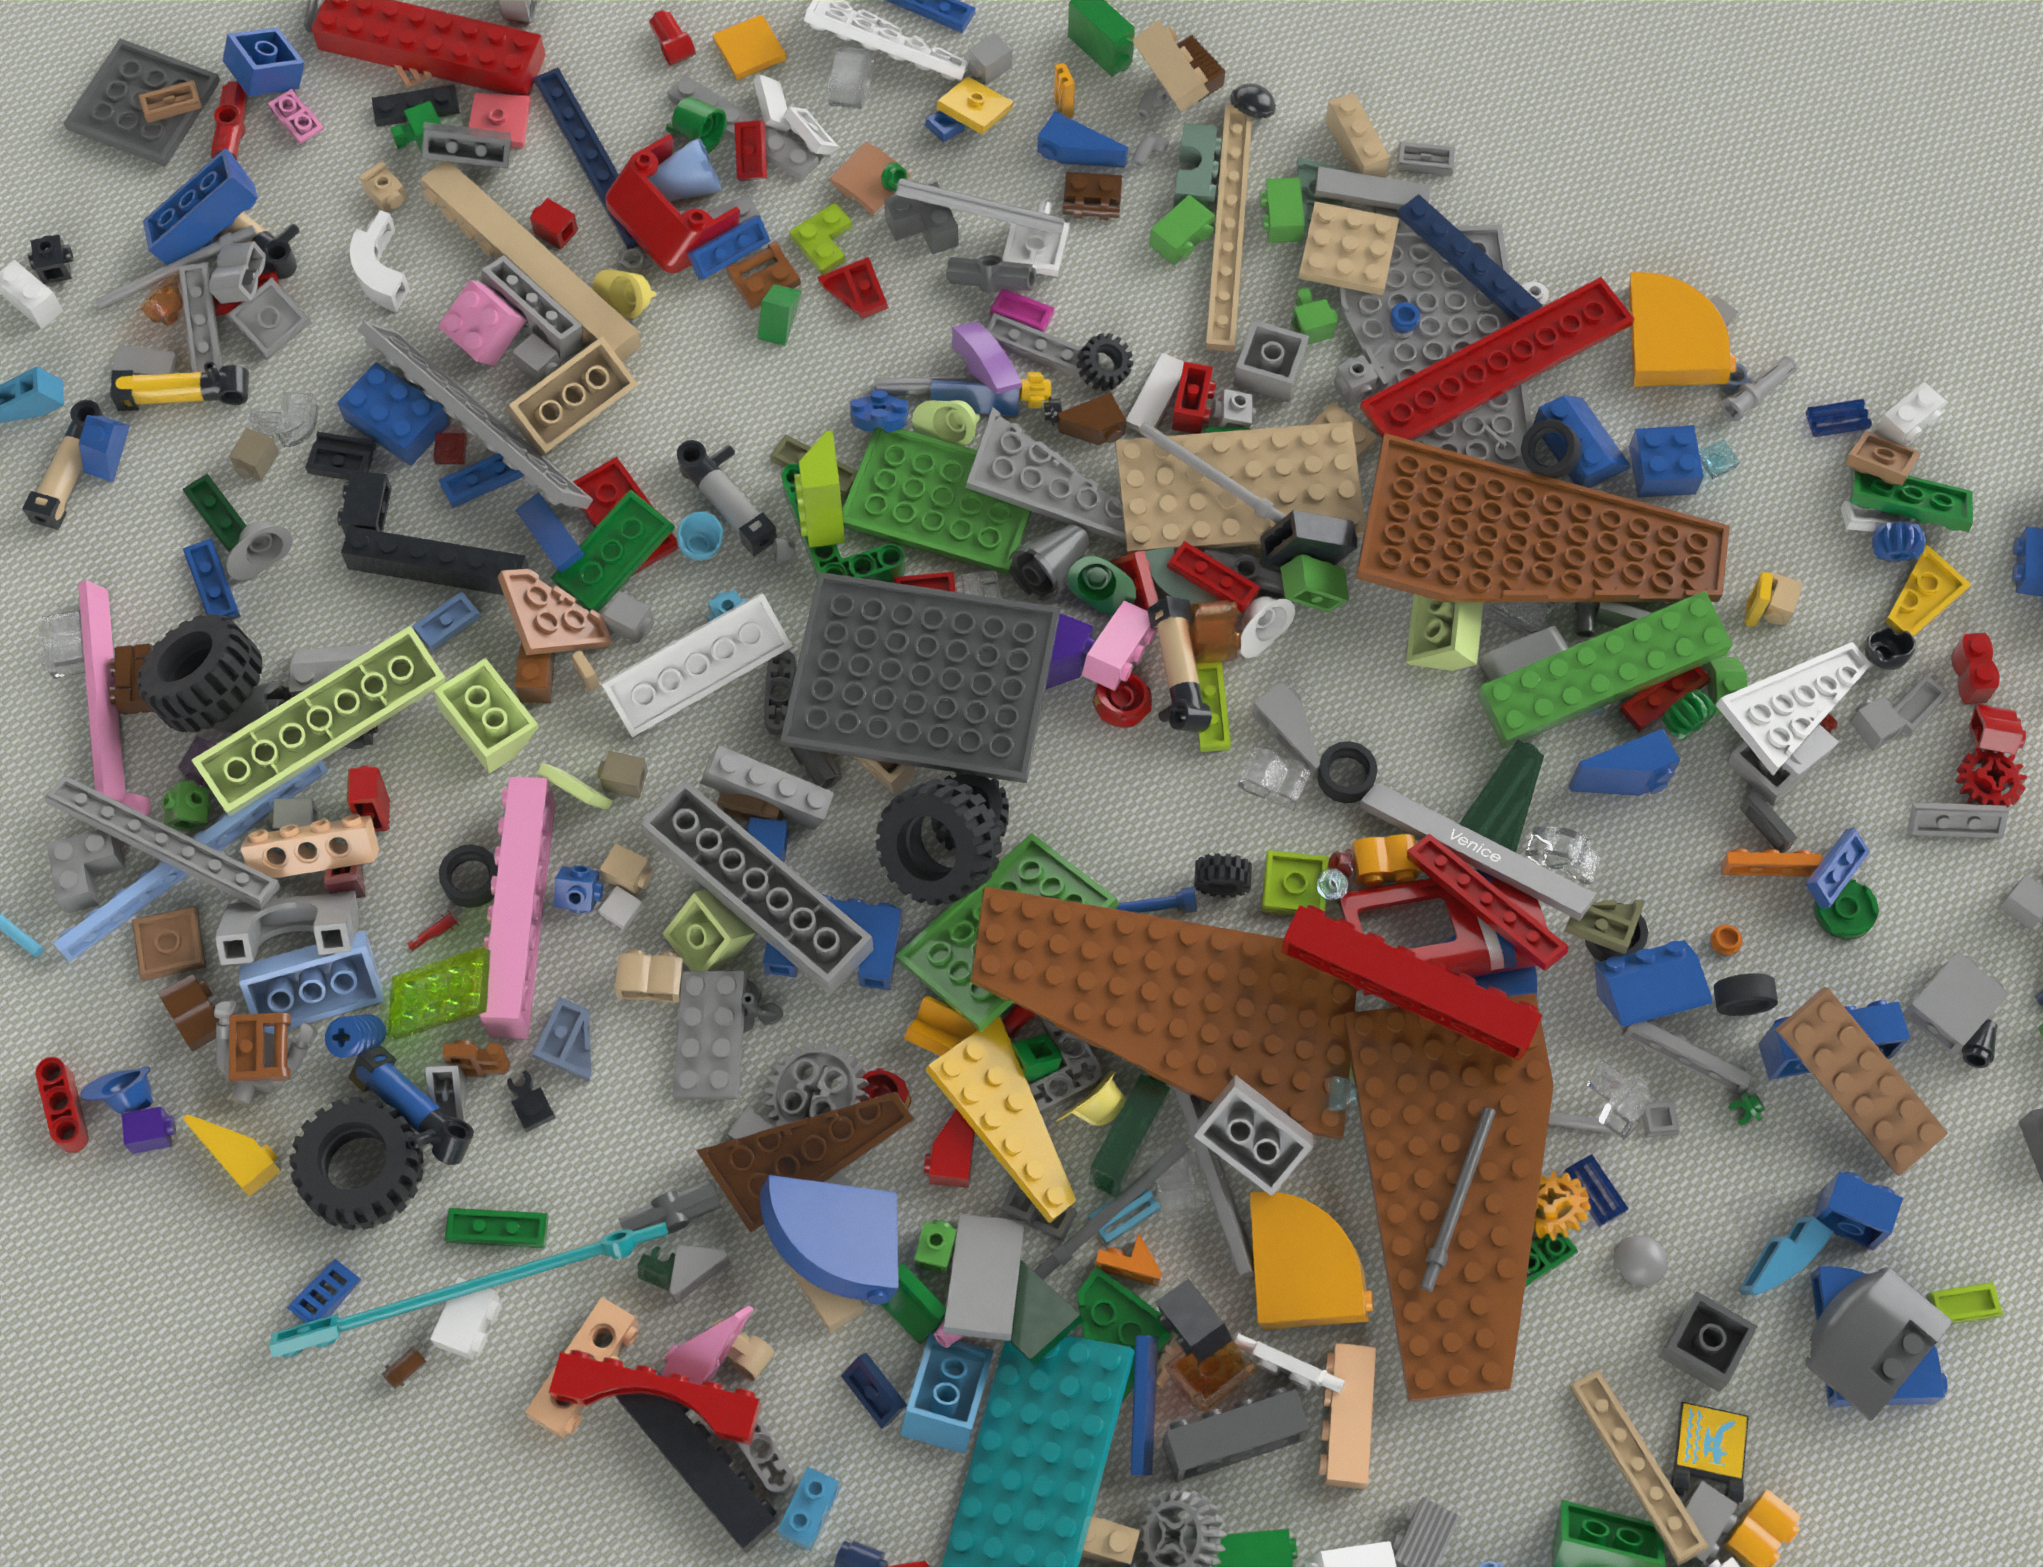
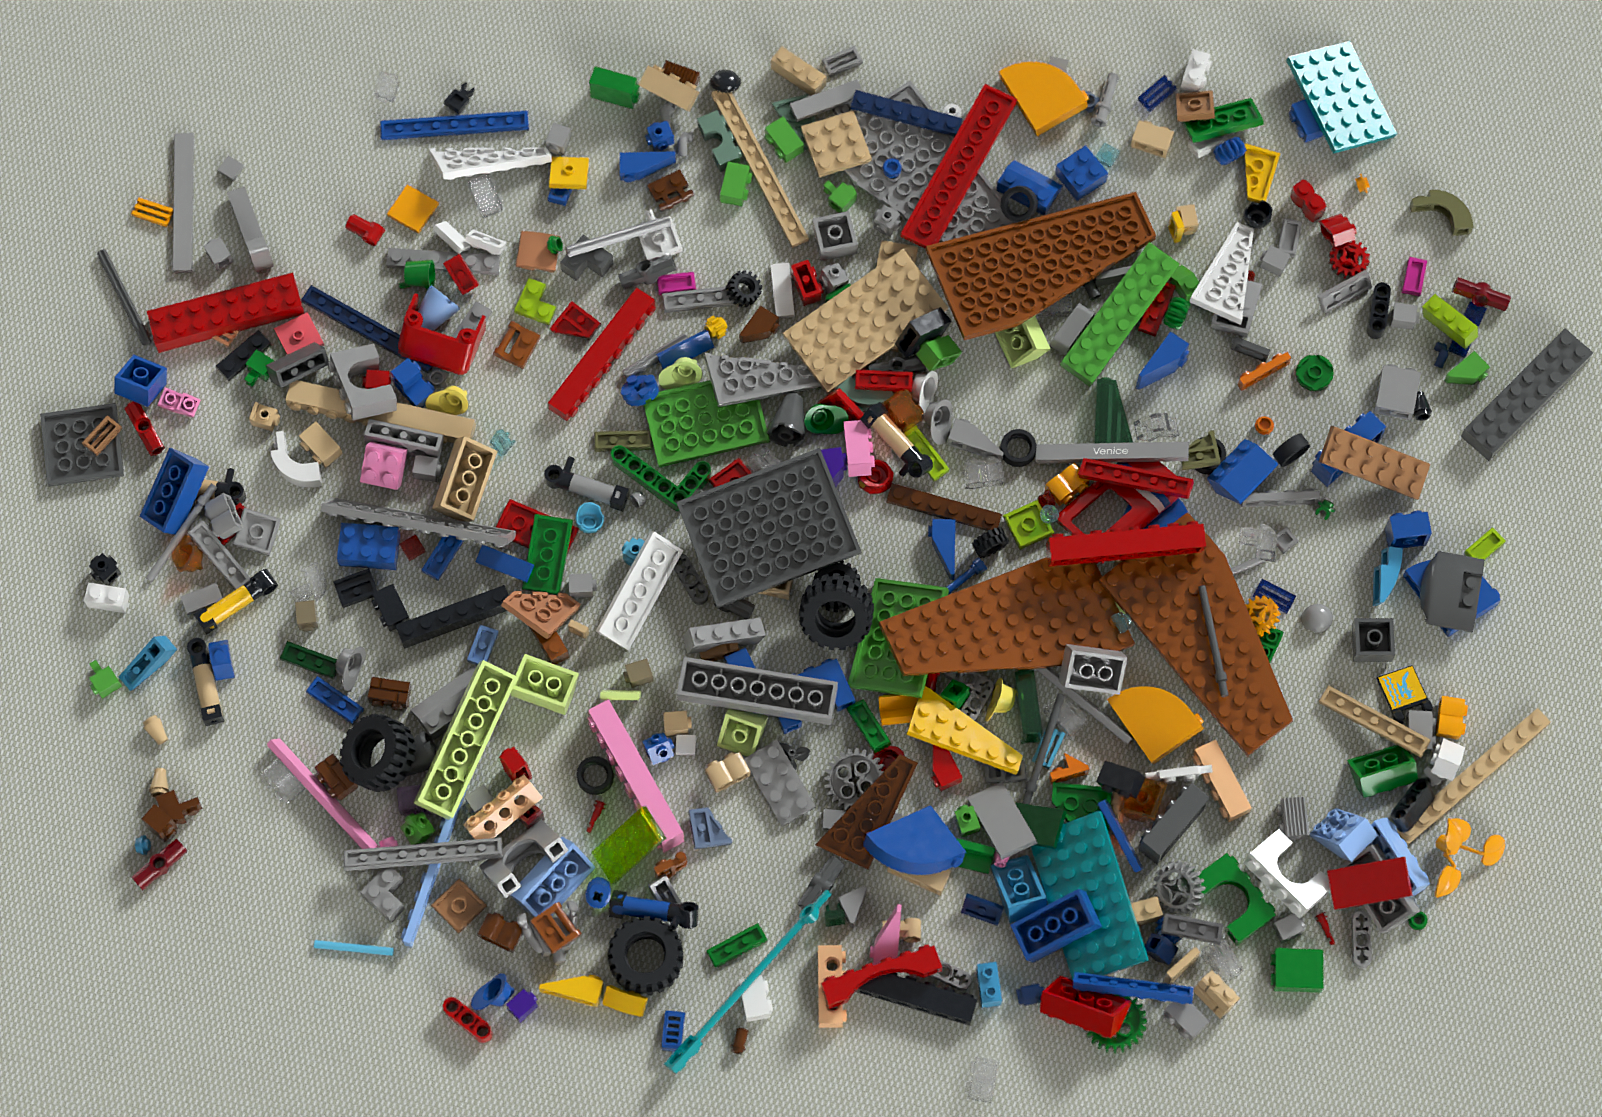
camera: 30 degrees left, 5 degrees up
(283, 611) = (389, 693): none -> reddish brown brick
(288, 1214) = (624, 1001): none -> yellow slope
(426, 258) = (320, 445): none -> tan brick
(523, 180) = (358, 401): none -> light grey arch
(531, 1105) = (711, 874): black plate -> none
(592, 241) = (409, 382): none -> blue brick
(656, 380) = (501, 442): none -> clear light blue tile
(728, 247) = (489, 340): blue tile -> none
(778, 314) = (543, 363): green slope -> none
(820, 494) = (655, 458): lime slope -> none
(860, 344) = (602, 354): none -> red brick
(885, 1030) = (868, 726): none -> green tile
(959, 1481) = (1056, 925): none -> blue brick
(985, 357) = (677, 324): medium lavender slope -> none
(1052, 409) = (732, 333): black plate -> none
(1064, 90) = (618, 138): light orange tile -> none
(1122, 120) = (659, 135): none -> blue brick
(1162, 834) = (943, 541): none -> blue slope
(1190, 793) = (943, 507): none -> reddish brown plate
(1259, 671) = (939, 420): none -> light grey piece
(1262, 507) = (888, 326): light grey bar -> none
(1795, 470) = (1152, 138): none -> tan brick
(1837, 868) = (1299, 354): blue tile -> none
(2000, 862) = (1382, 303): none -> black beam

